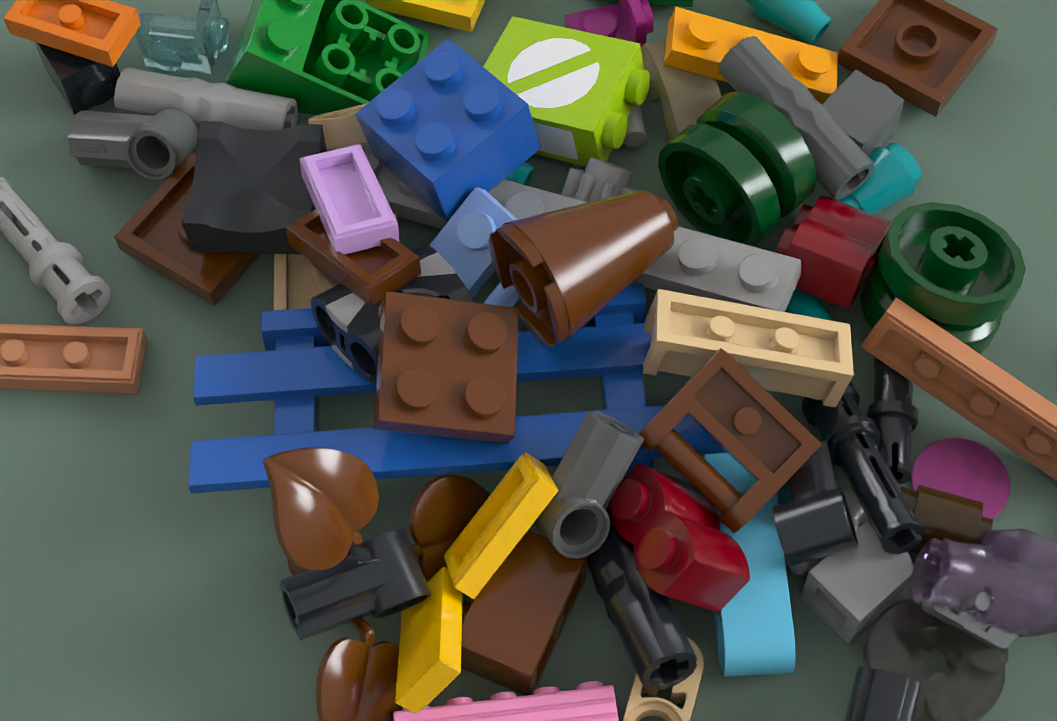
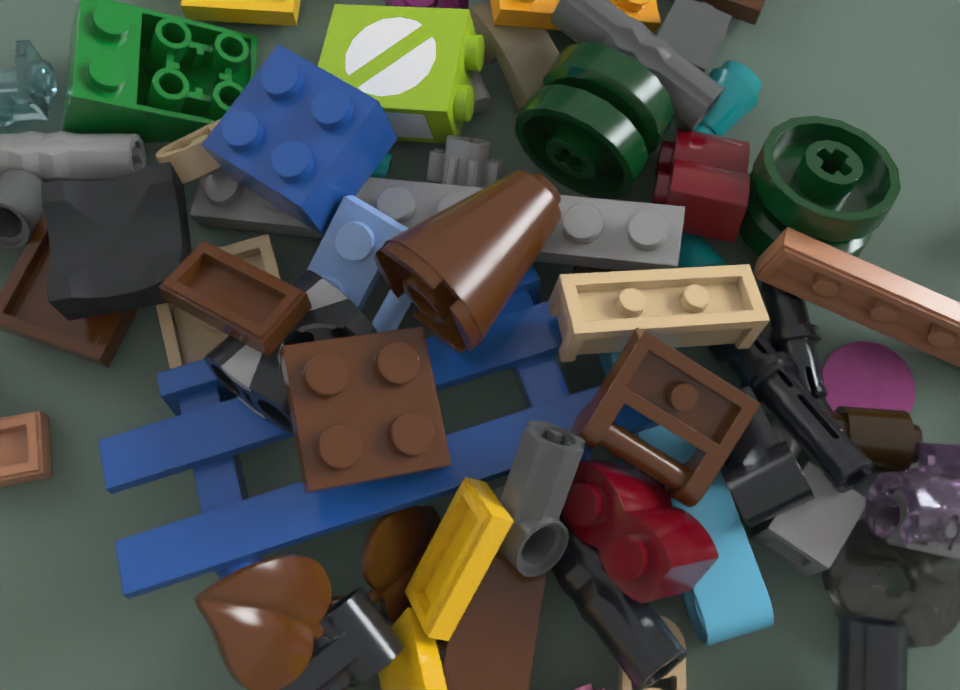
camera: 15 degrees left, 10 degrees up
(348, 199) = (217, 242): lavender tile -> none

